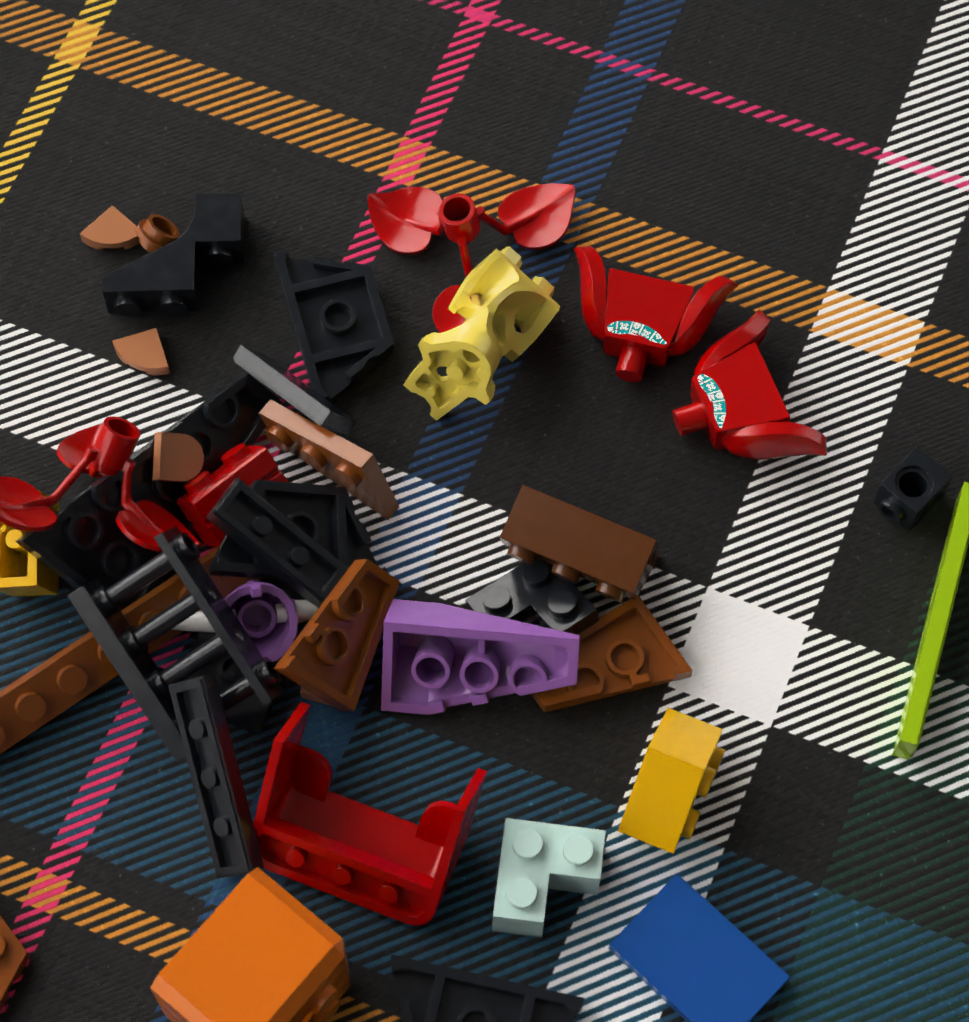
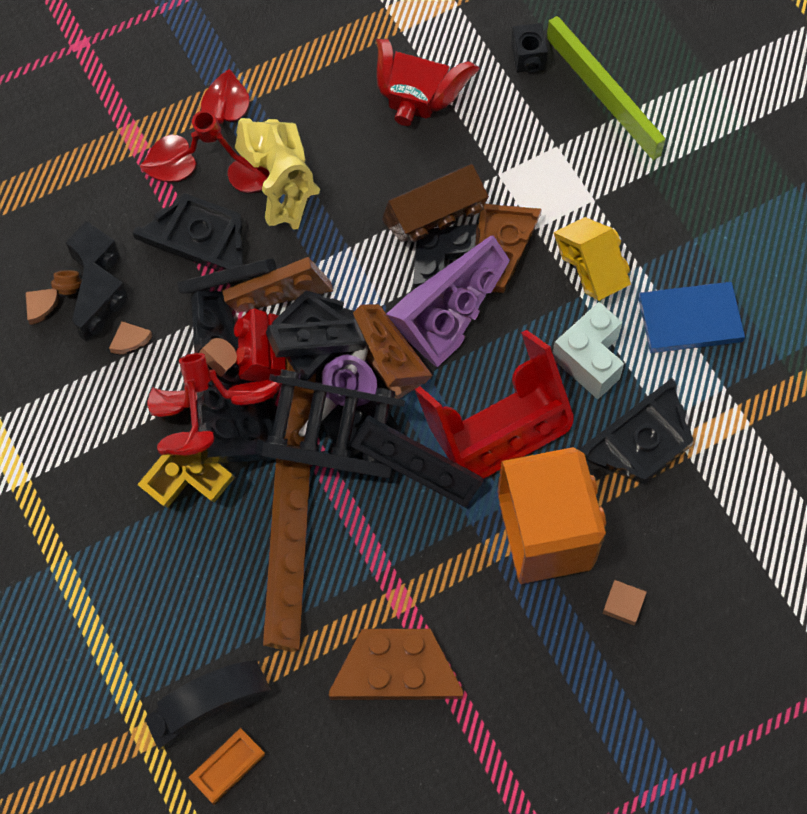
camera: 50 degrees left, 0 degrees up
(644, 316) = (329, 93): red torso -> none

